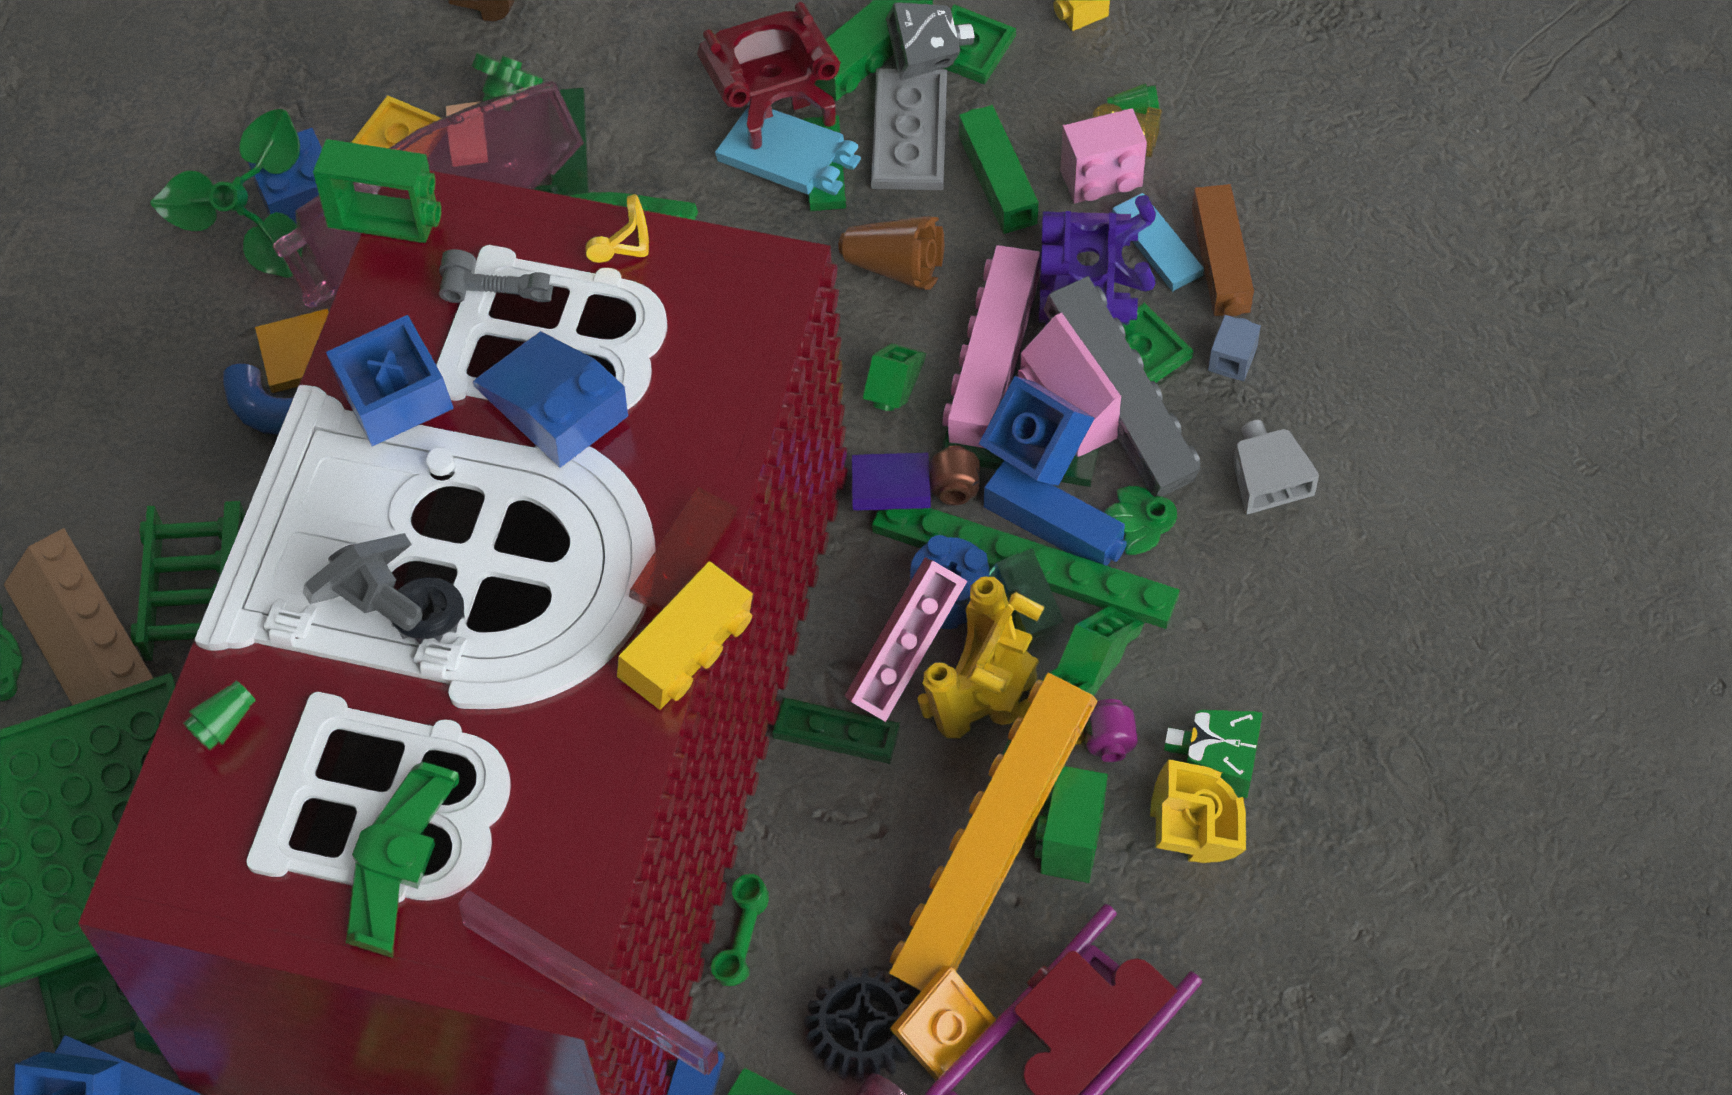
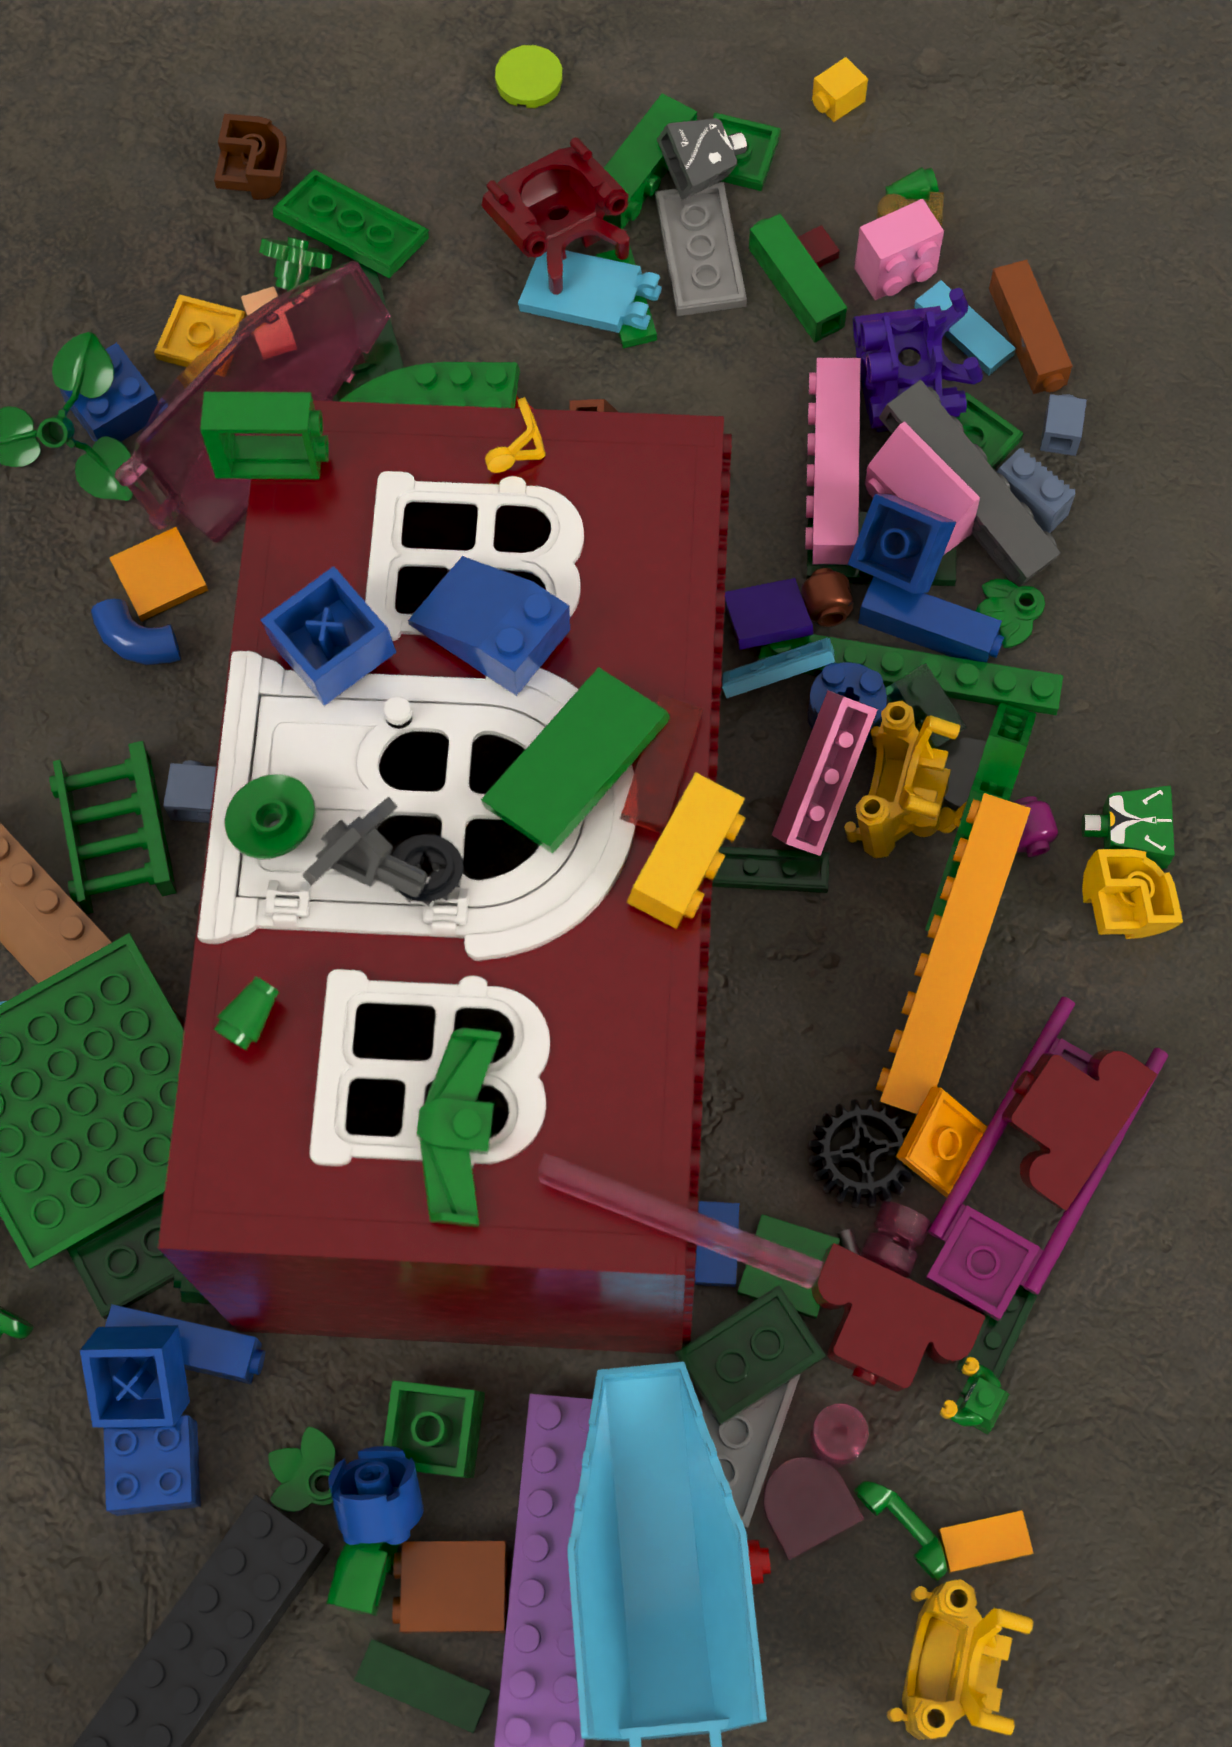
camera: 10 degrees left, 10 degrees up
(290, 536) = (262, 803): none -> green dish
(458, 276) = (365, 511): dark grey brick -> none
(570, 54) = (351, 223): none -> green tile
(598, 533) = (575, 760): none -> green tile
(752, 897) = (730, 1048): green bar -> none
(887, 533) = (778, 667): none -> medium azure tile
(893, 376) = (746, 506): green slope -> none
(897, 249) = (718, 377): dark orange cone -> none
(1027, 144) = (820, 246): none -> dark red tile
(1071, 824) = (1020, 928): green brick -> none
(1196, 409) = (1038, 489): none -> sand blue brick
(1271, 468) = (1123, 540): light grey torso -> none

